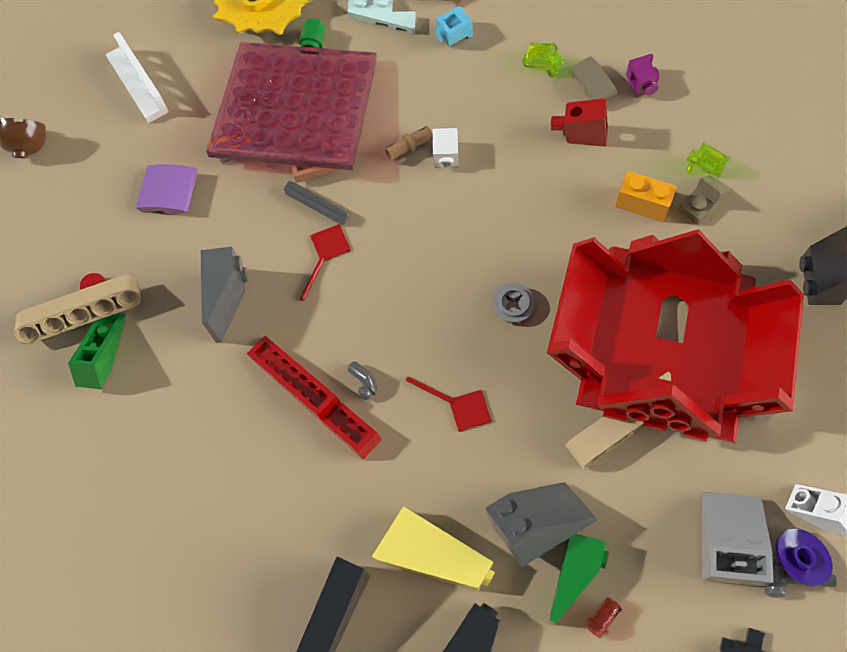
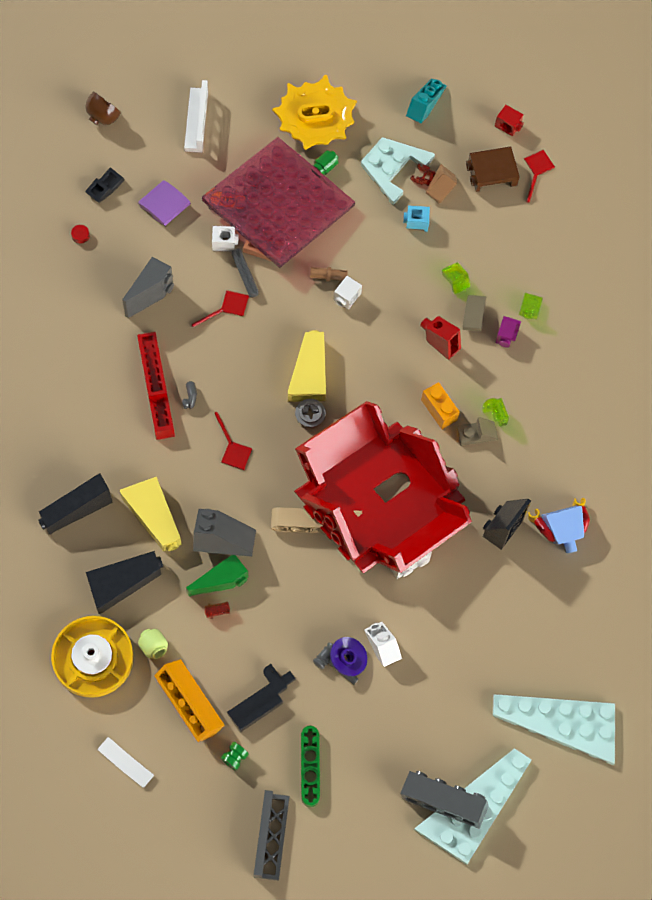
camera: 25 degrees right, 0 degrees up
(77, 309) = (61, 242): tan beam -> none
(85, 214) = (105, 186): none -> black slope
(96, 353) = (56, 274): green slope -> none
(265, 190) = (221, 232): none -> white brick
(475, 255) = (309, 372): none -> light yellow slope
(641, 37) = (530, 306): none -> clear neon green bracket
(735, 540) = (319, 621): light grey slope -> none

